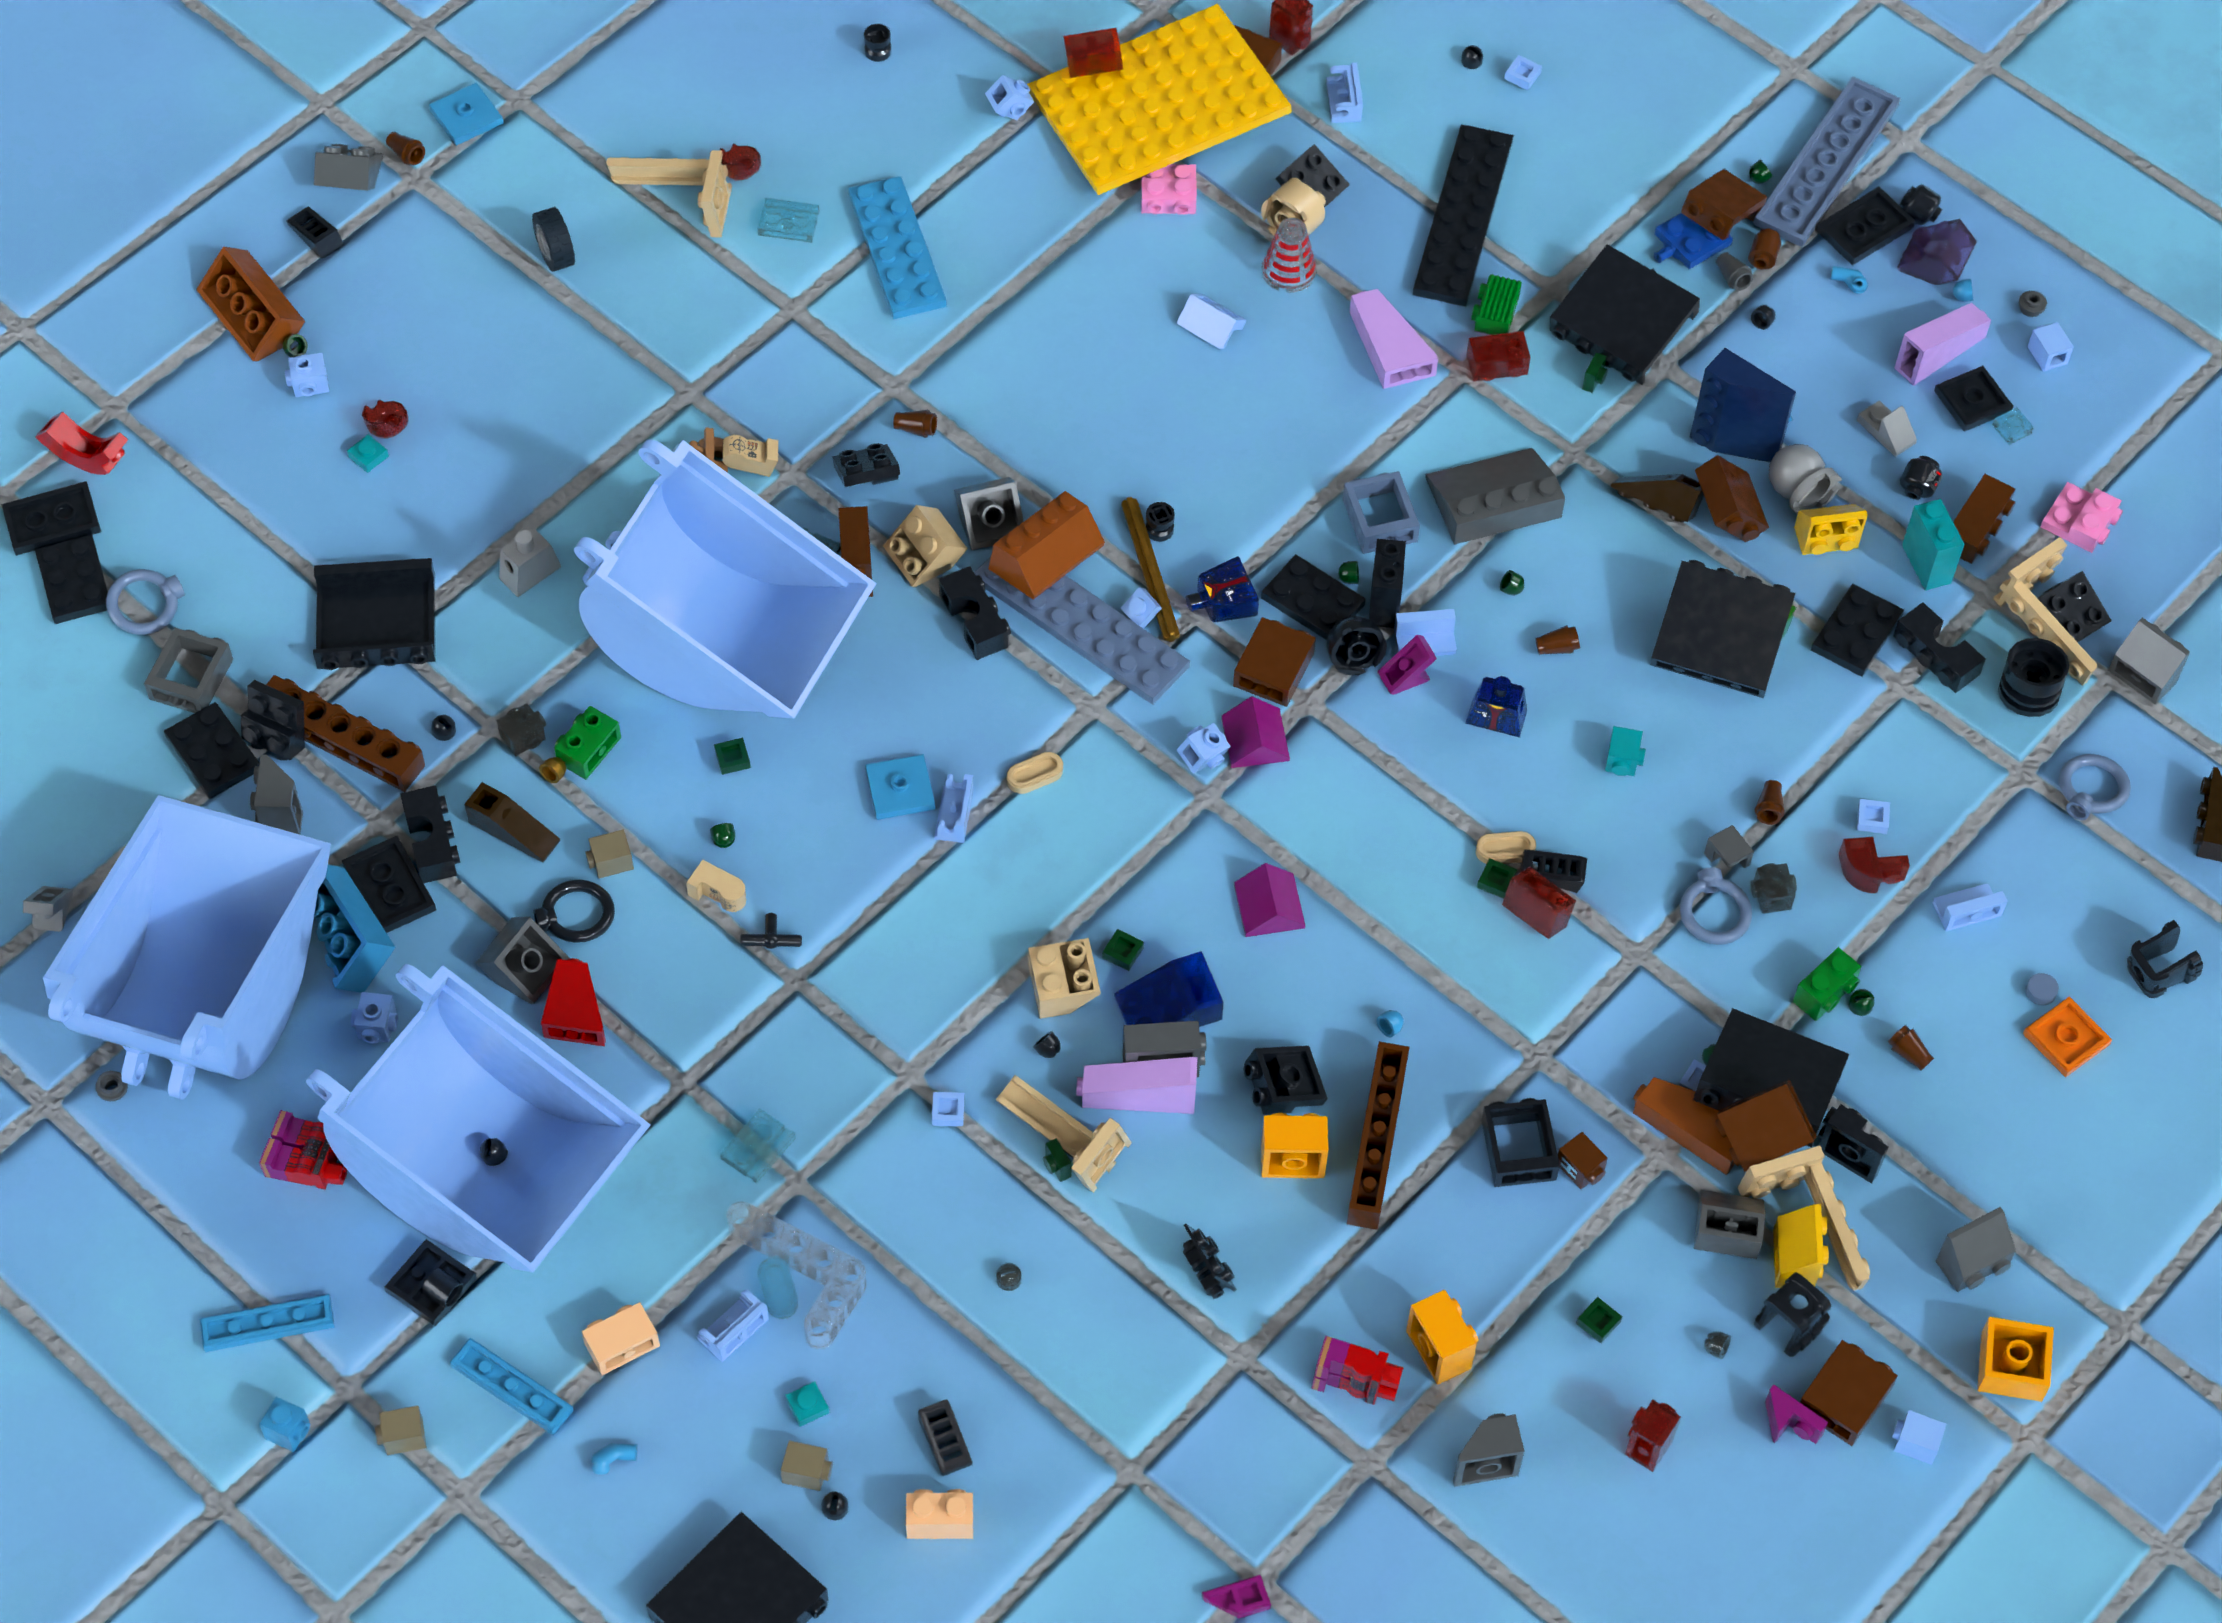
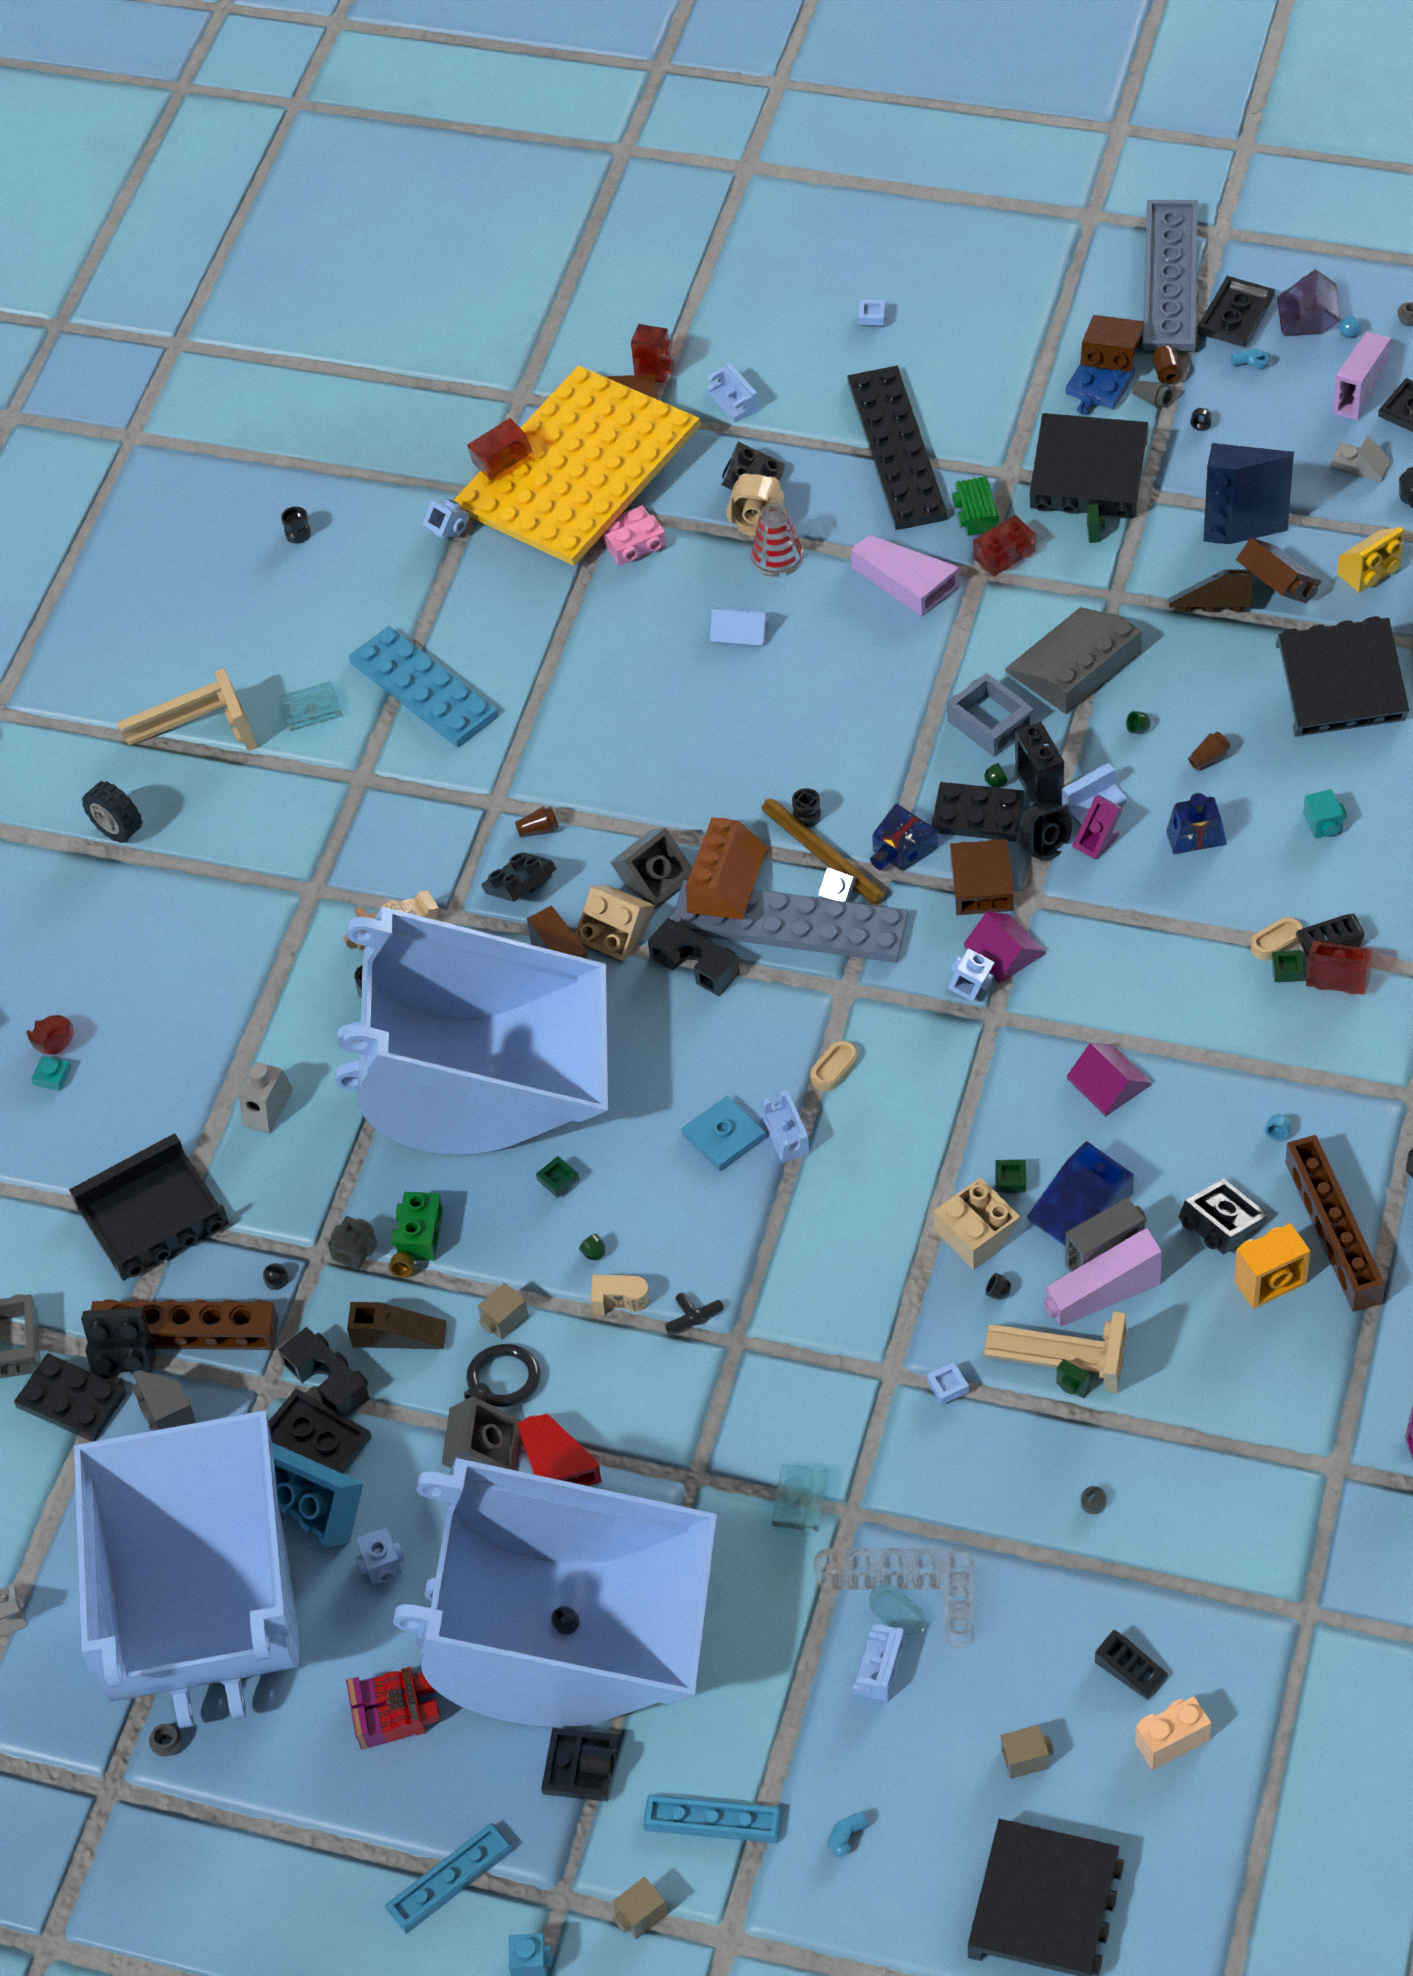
camera: 20 degrees left, 5 degrees down
(620, 1338) = (787, 1724): light nougat brick -> none
(741, 162) = (241, 673): clear red hair -> none
(807, 1404) = (989, 1698): teal plate -> none
(841, 1509) = (1065, 1776): black hinge -> none
(1202, 1257) = (1272, 1399): black hinge -> none
(1472, 57) = (819, 319): black hinge -> none
(1759, 172) = (1121, 306): dark green hinge -> none
(1801, 476) = (1321, 527): light grey tile -> none
(1922, 204) = (1271, 273): black head -> none

